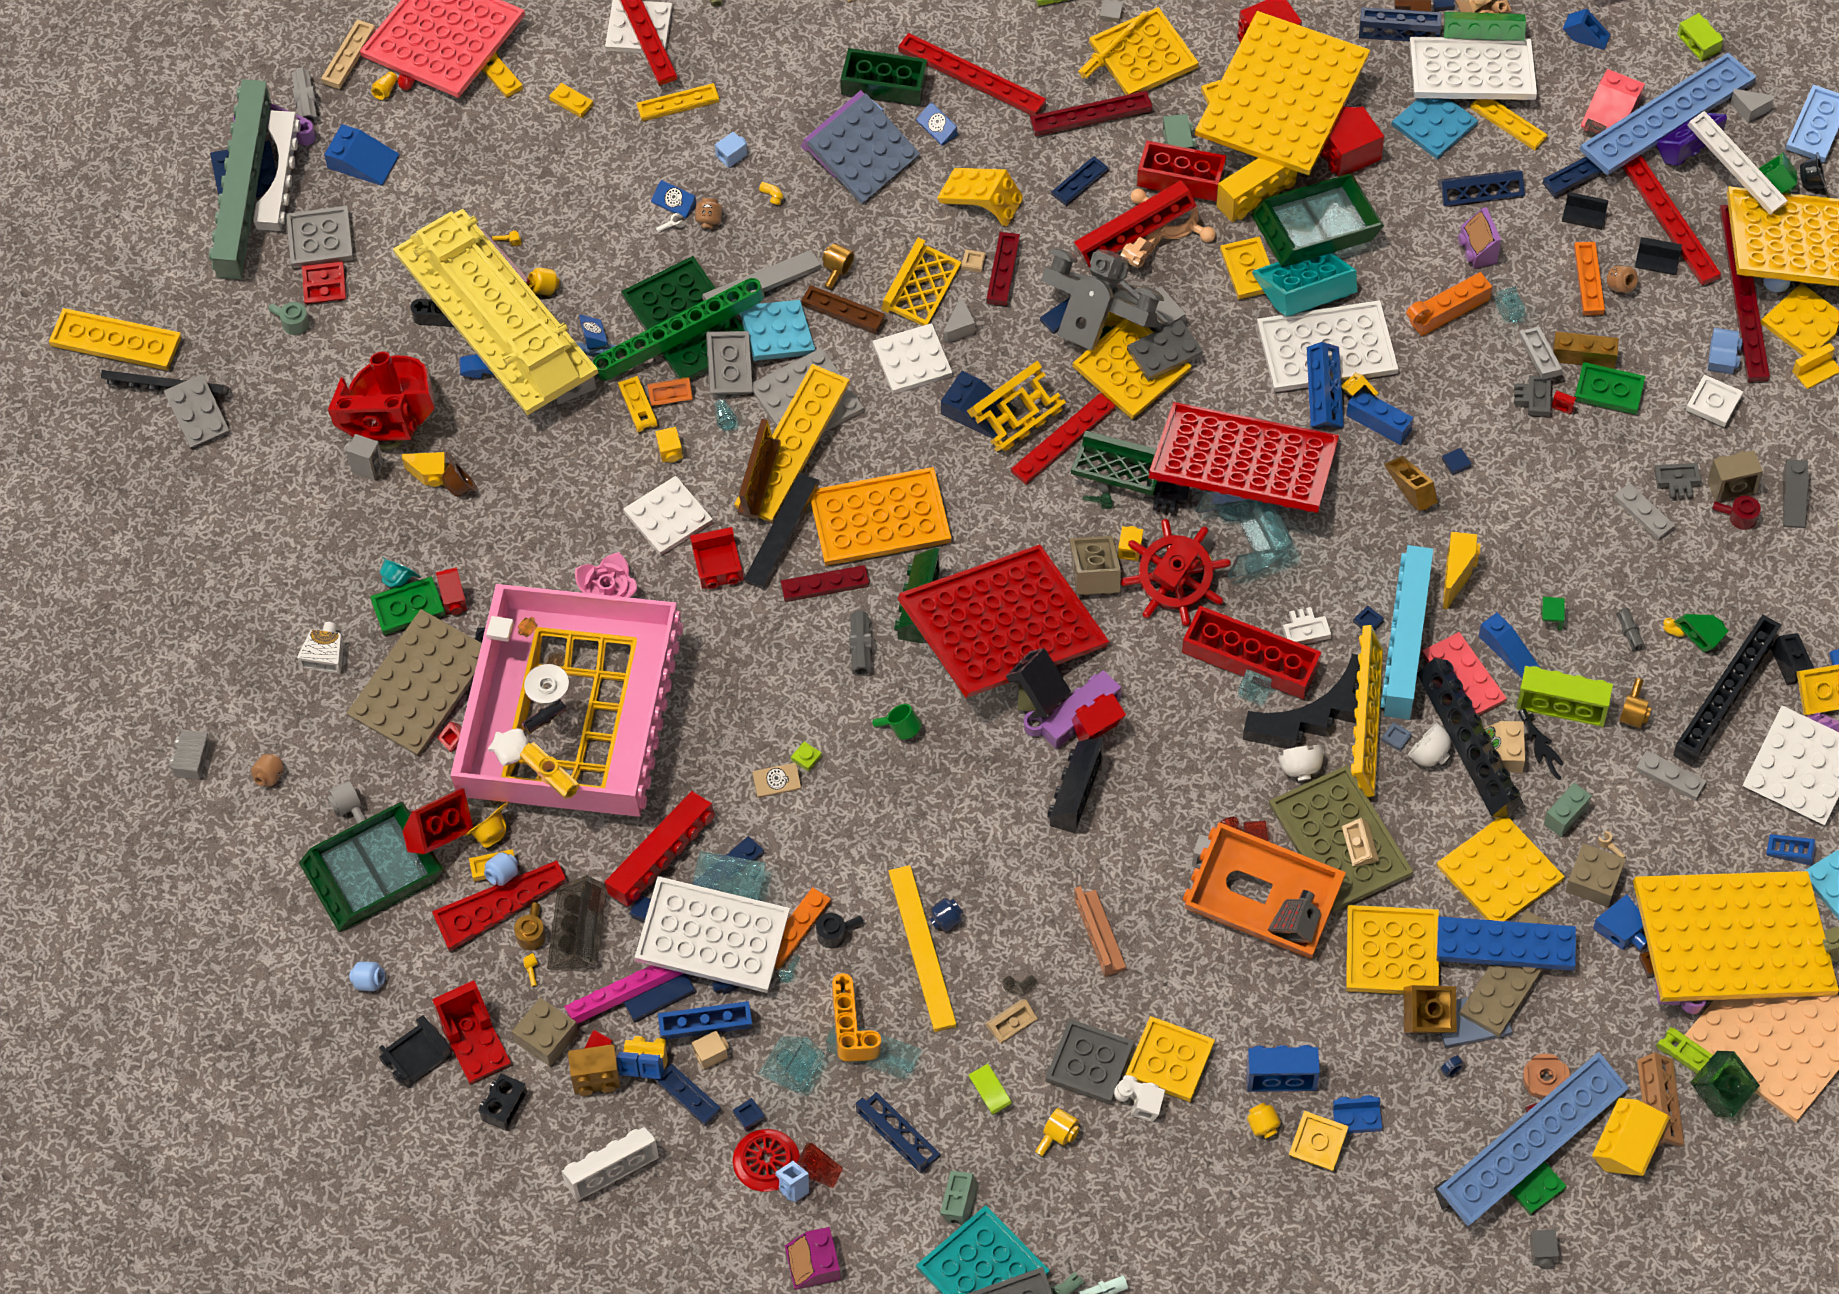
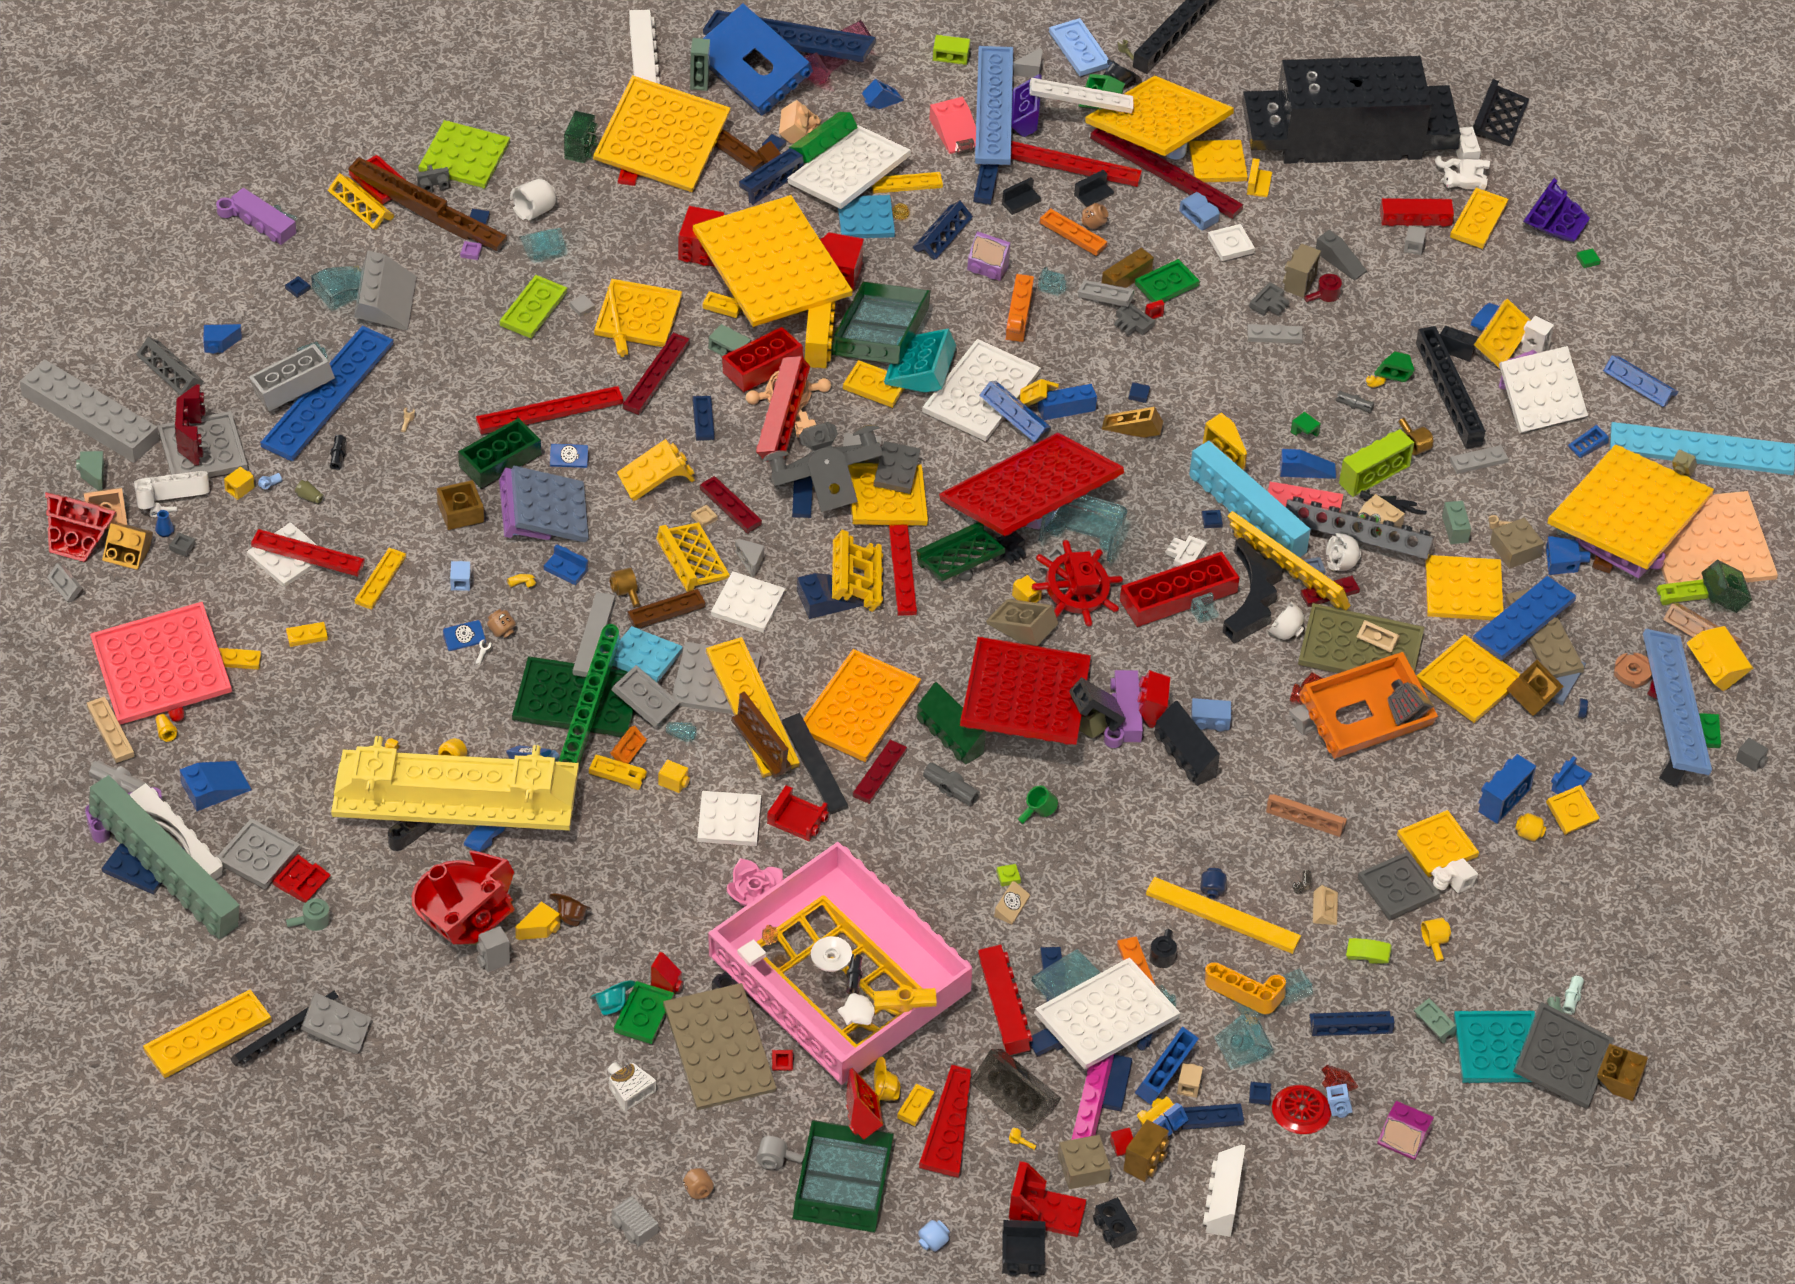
camera: 55 degrees left, 10 degrees down
(501, 869) = (931, 1096): light blue head -> none
(530, 929) = (992, 1117): pearl gold piece -> none
(801, 93) = (460, 505): none -> pearl gold brick
(817, 210) = (567, 565): none -> blue bracket
(1104, 499) = (976, 581): clear green hand -> none
(1135, 778) = (1211, 714): none -> medium blue brick
(1391, 773) = (1347, 583): none -> dark red plate
(1468, 141) = (900, 211): none -> clear yellow plate

